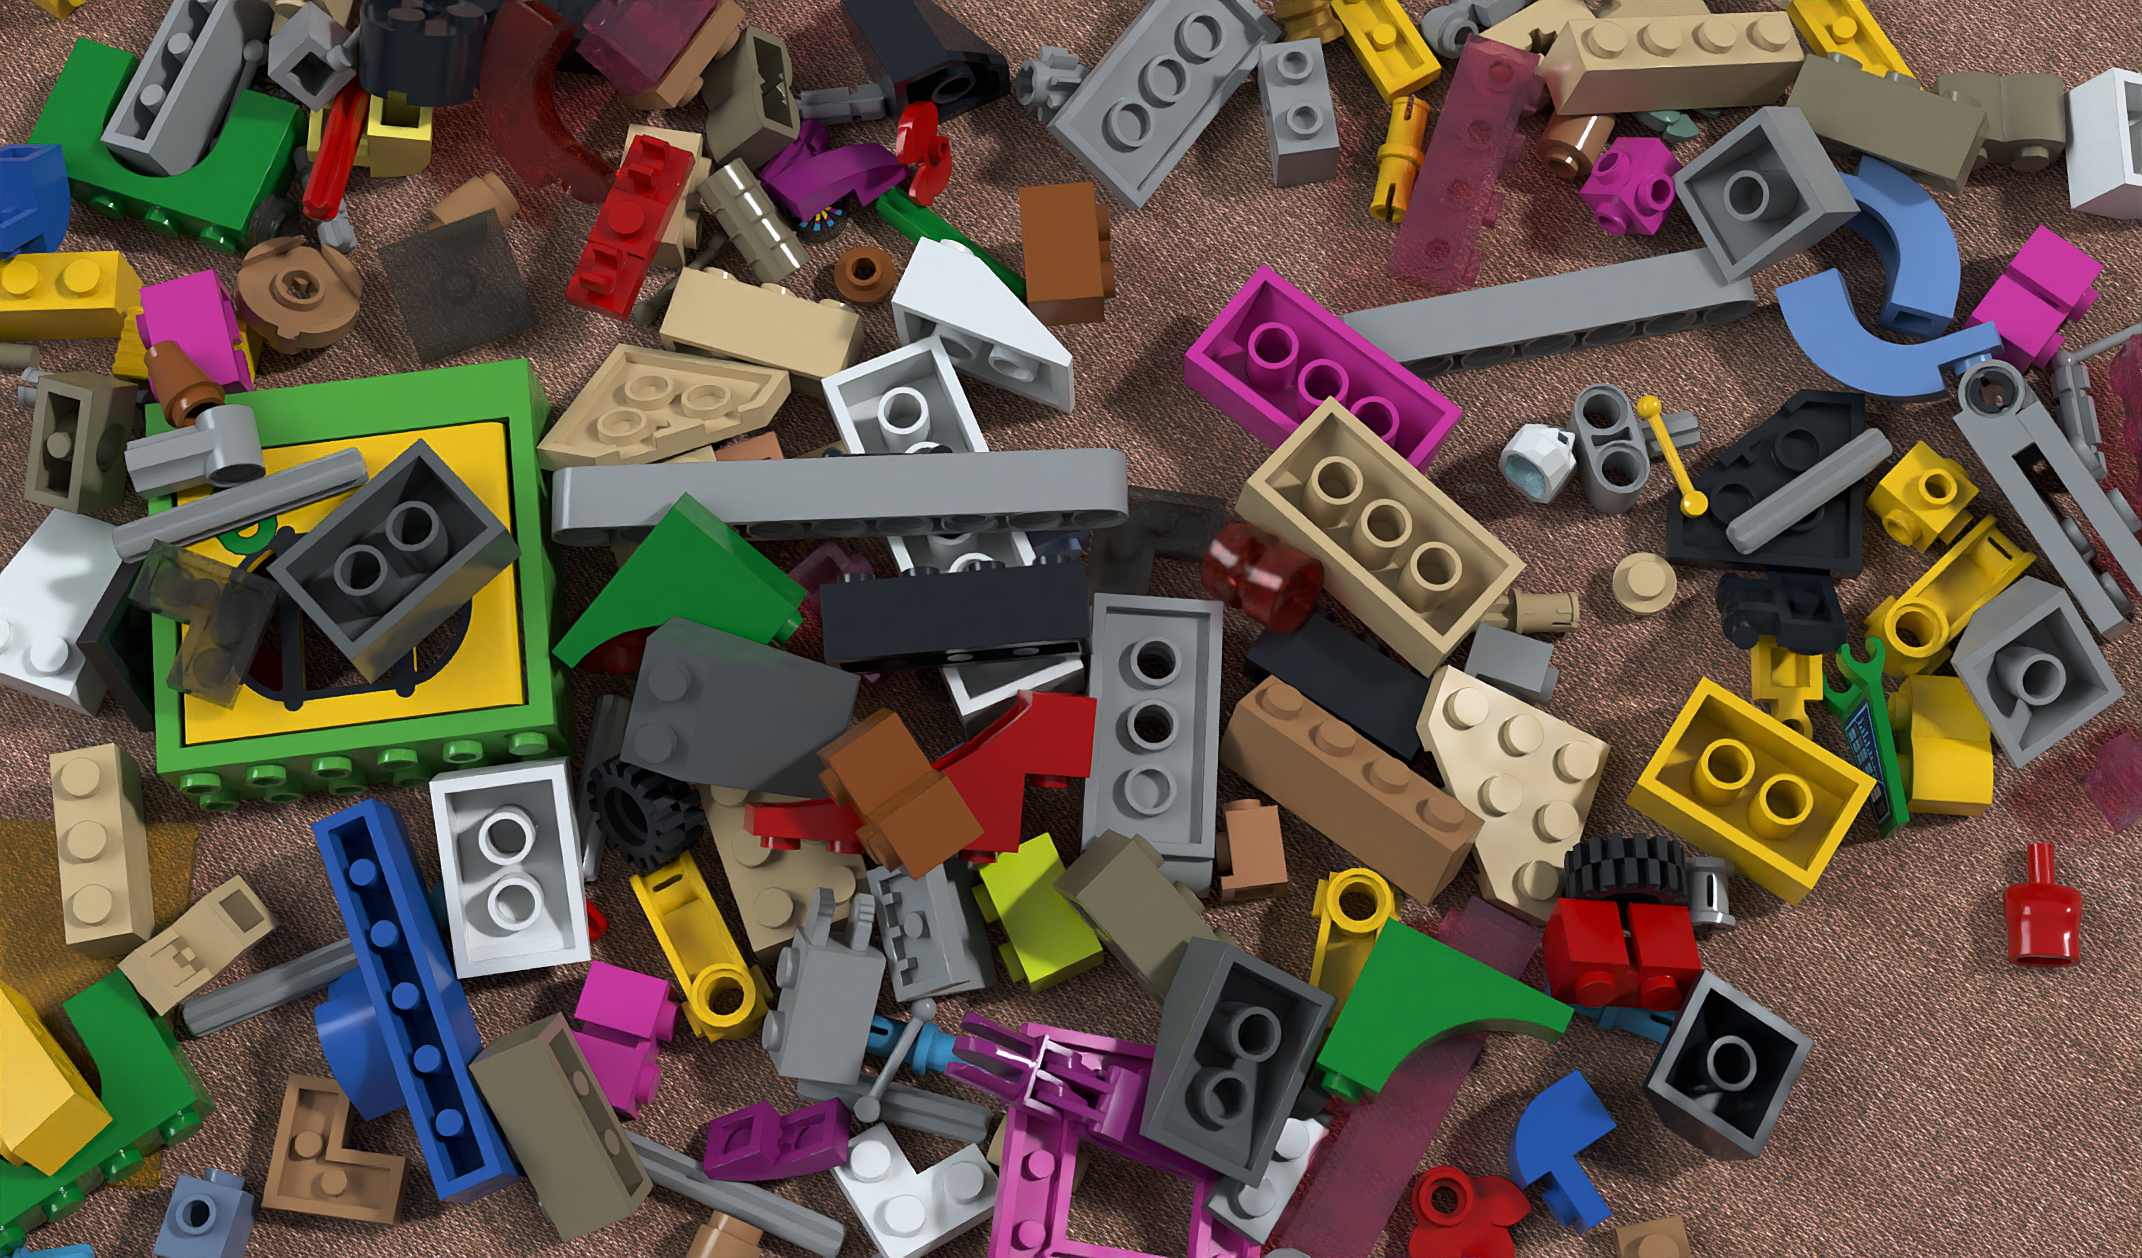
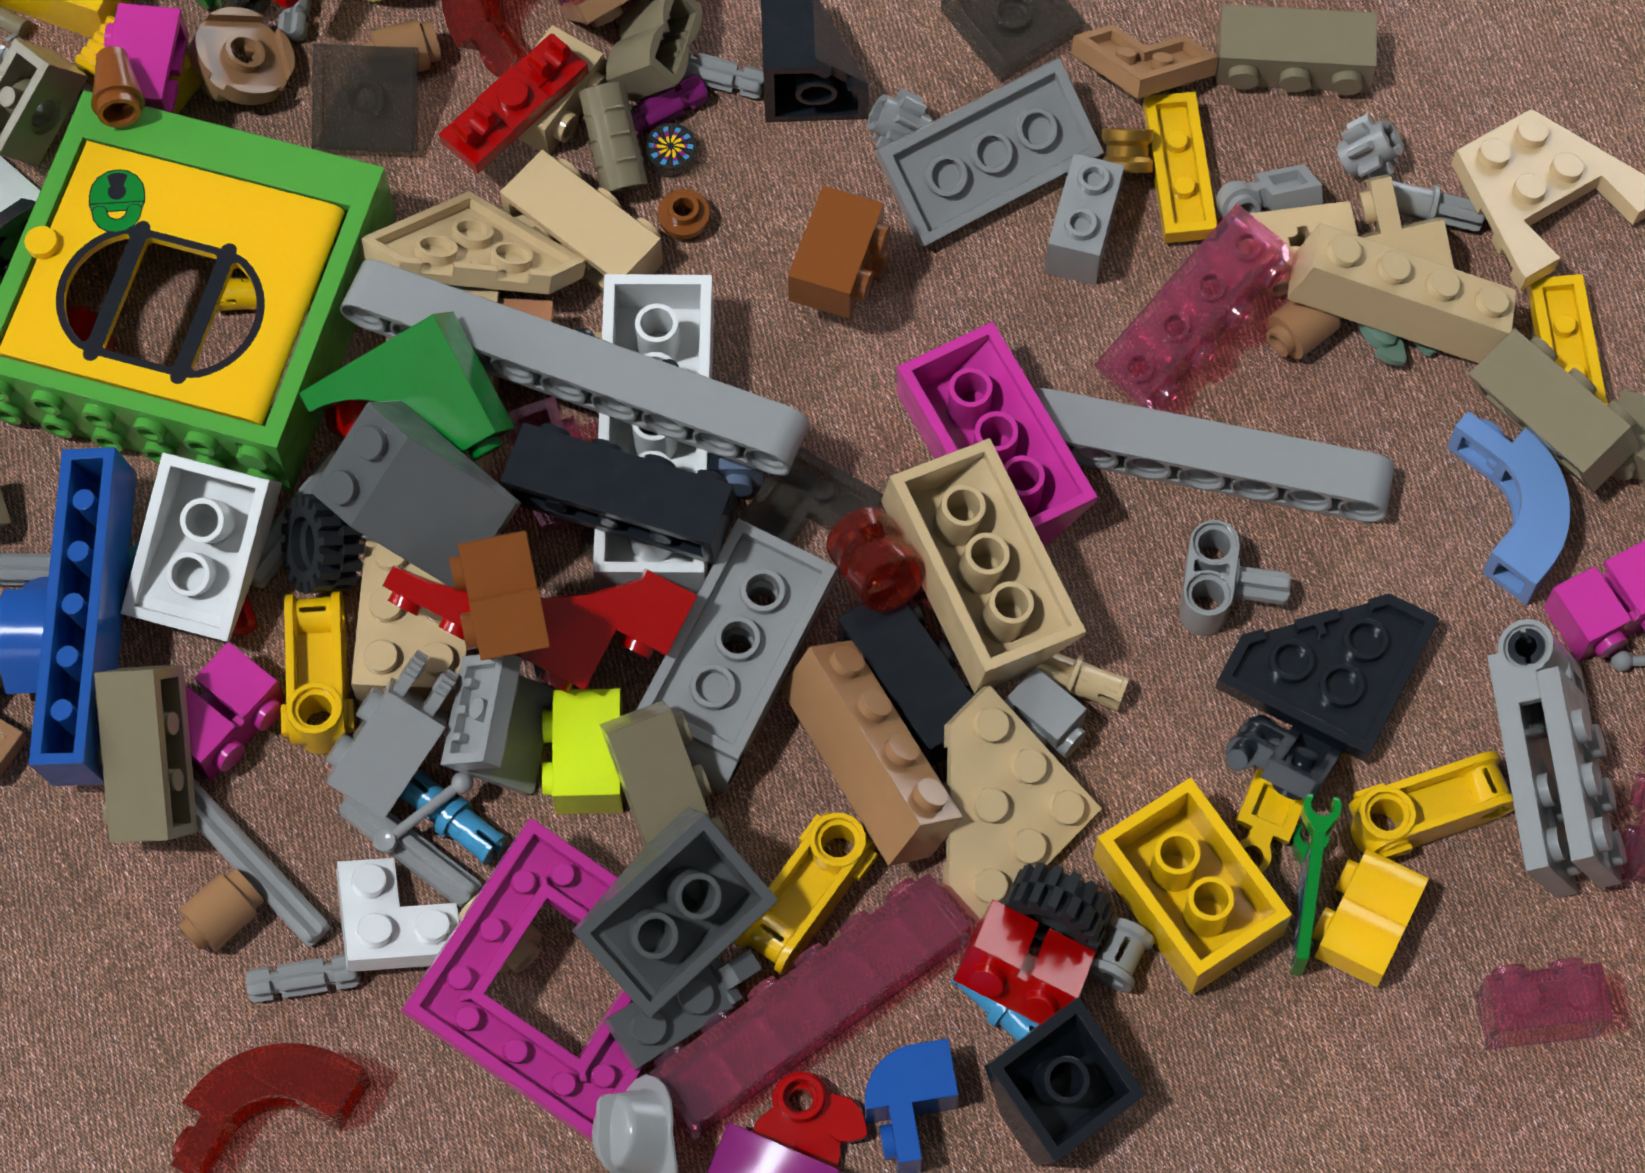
camera: 20 degrees right, 5 degrees down
(215, 451) = (117, 143): light grey piece -> none
(225, 616) = (67, 268): clear smoke plate -> none
(242, 504) = (118, 191): light grey axle -> none
(395, 560) = (210, 275): dark grey brick -> none
(647, 311) = (502, 175): dark tan hinge -> none
(768, 1146) = (297, 838): magenta slope -> none
(852, 170) = (714, 129): magenta slope -> none
(917, 221) = (758, 213): green axle -> none
(919, 142) = (770, 123): red piece -> none
(980, 324) = (747, 281): white slope -> none
(1041, 1081) = (491, 835): magenta arm -> none
(1250, 852) = (773, 773): nougat brick -> none
(1399, 159) = (1149, 283): yellow pin -> none
(1419, 995) = (837, 927): green arch -> none
(1539, 461) = (1150, 566): white rock -> none
(1632, 186) = (1328, 381): dark pink brick -> none
(1644, 583) = (1189, 695): tan plate -> none
(1693, 502) = (1255, 645): yellow hinge -> none
(1764, 192) = (1424, 422): light grey slope -> none
(1809, 491) = (1353, 673): light grey axle -> none
(1830, 334) = (1434, 560): medium blue arch -> none
(1924, 499) = (1446, 717): yellow brick -> none
(2033, 668) = (1461, 883): light grey slope -> none
(2042, 915) = (1389, 1084): red piece -> none
(2077, 411) = (1613, 706): light grey axle -> none

